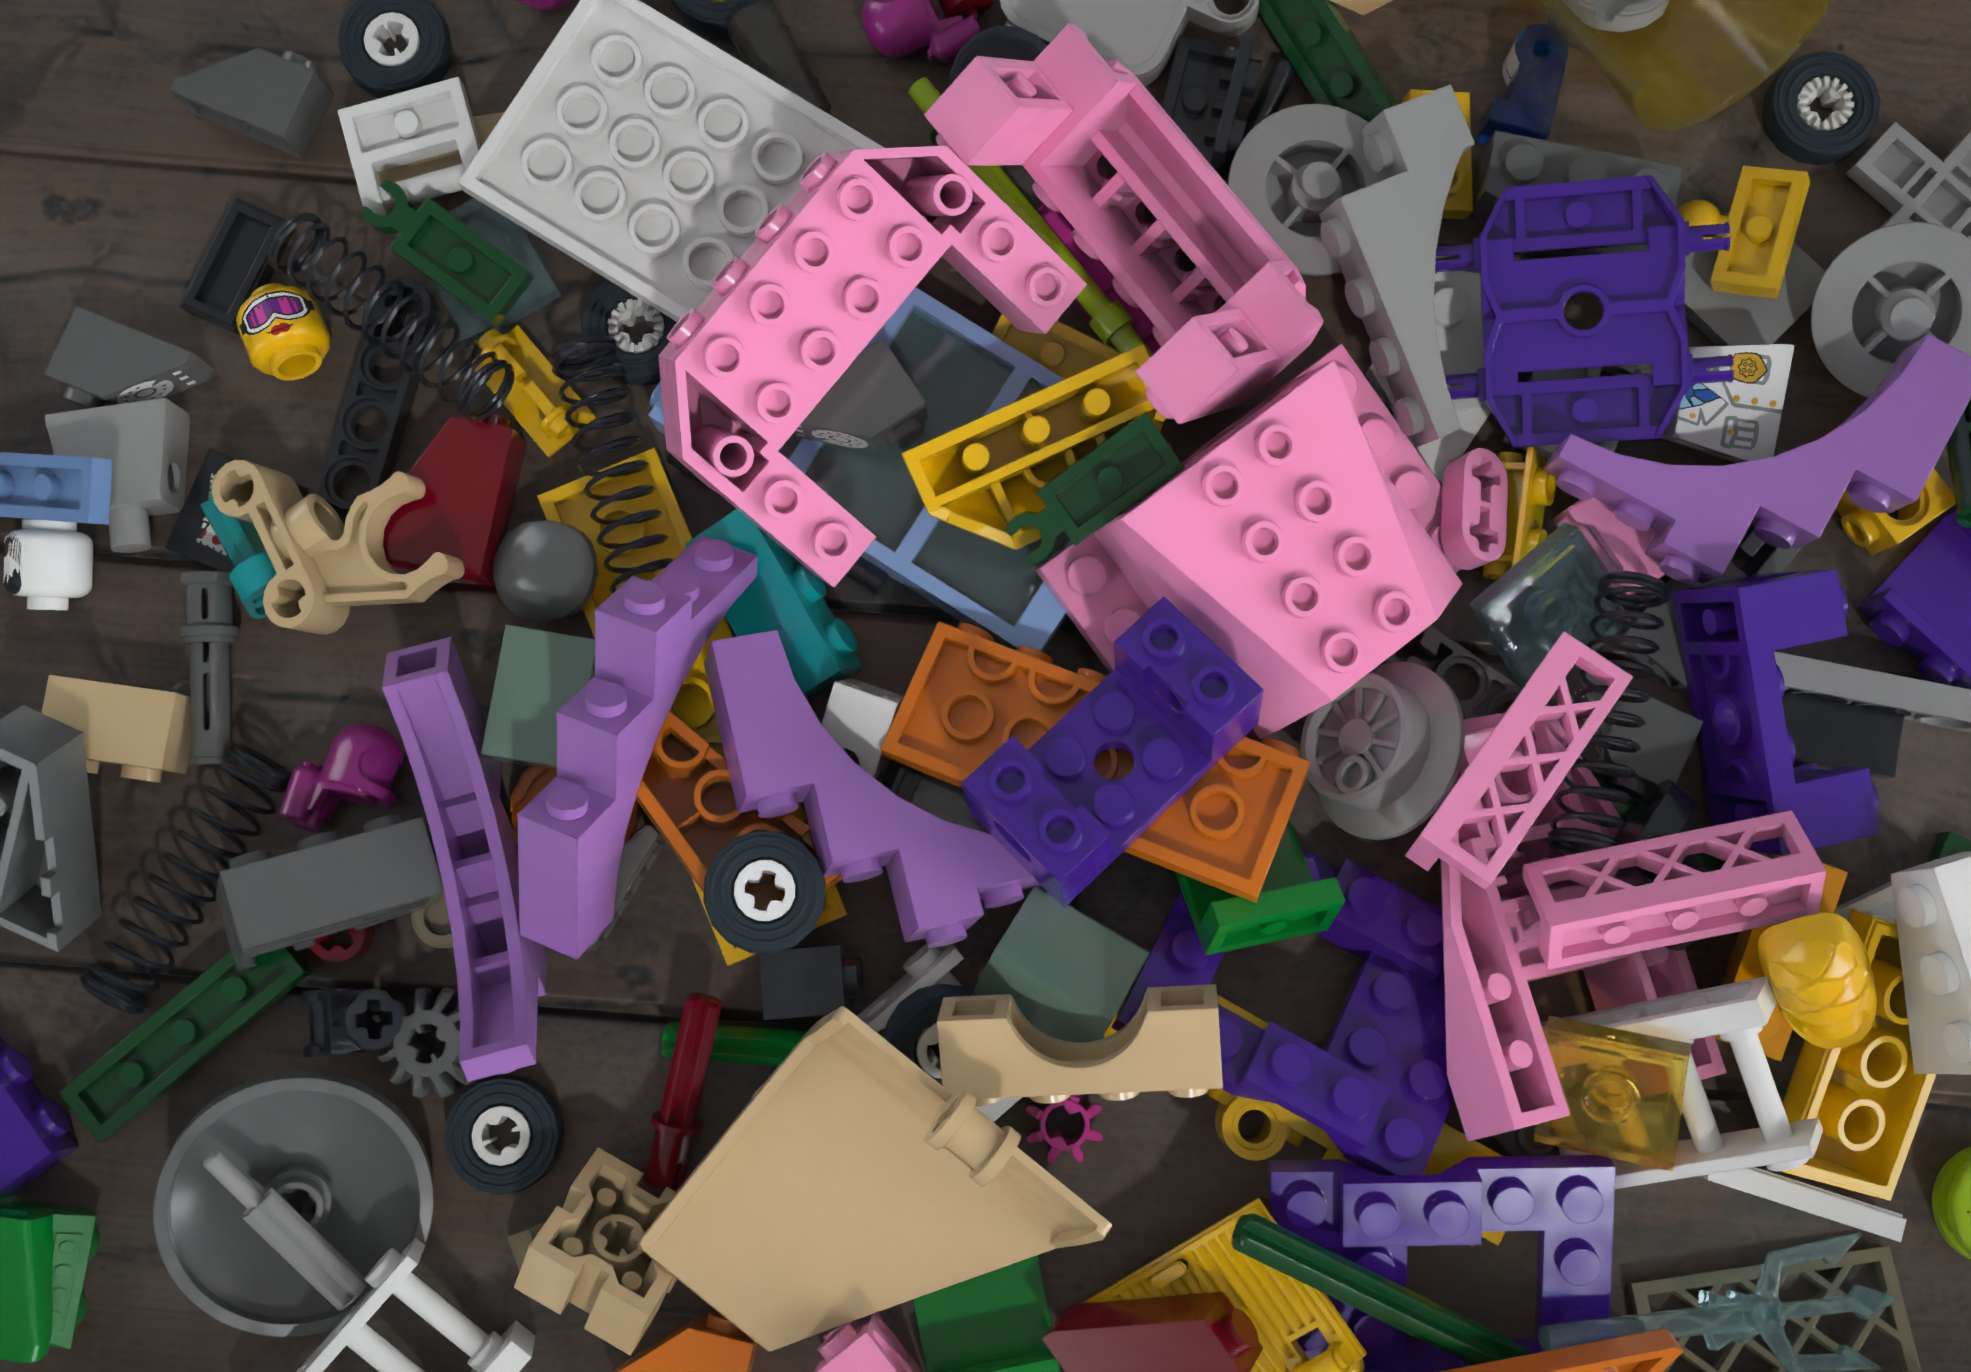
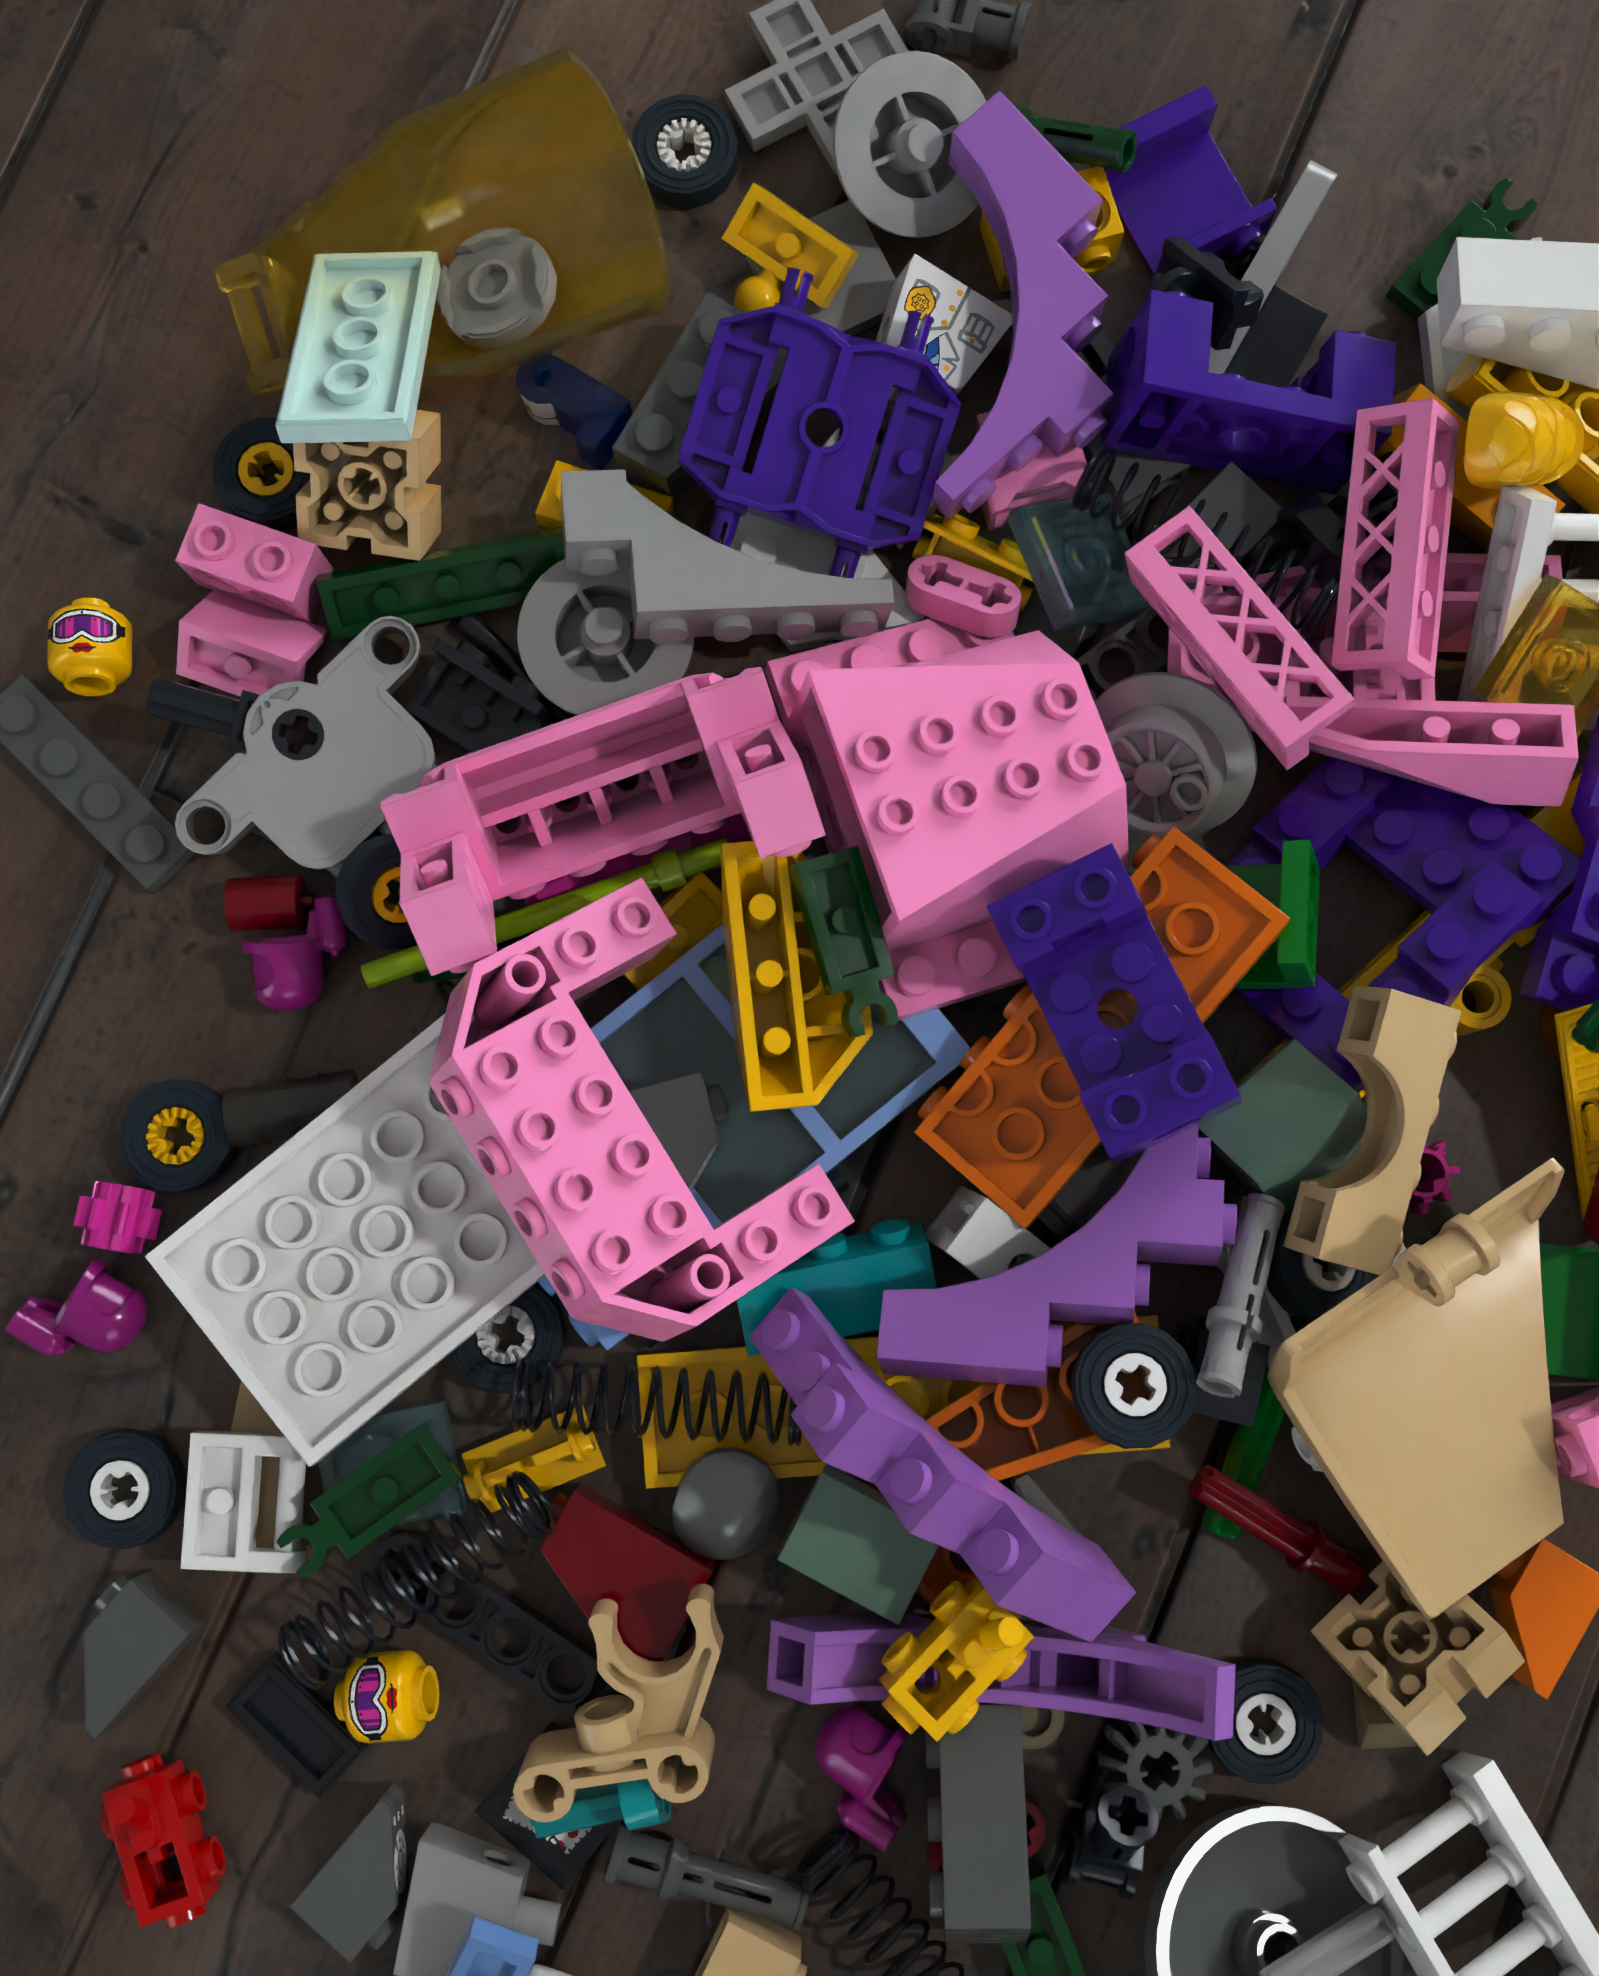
camera: 70 degrees left, 0 degrees up
(102, 182) = (152, 1818): none -> red brick
(477, 816) = (968, 1646): none -> yellow brick
(861, 967) = (1235, 1319): none -> light grey pin
(1873, 632) = (1205, 278): none -> black hips

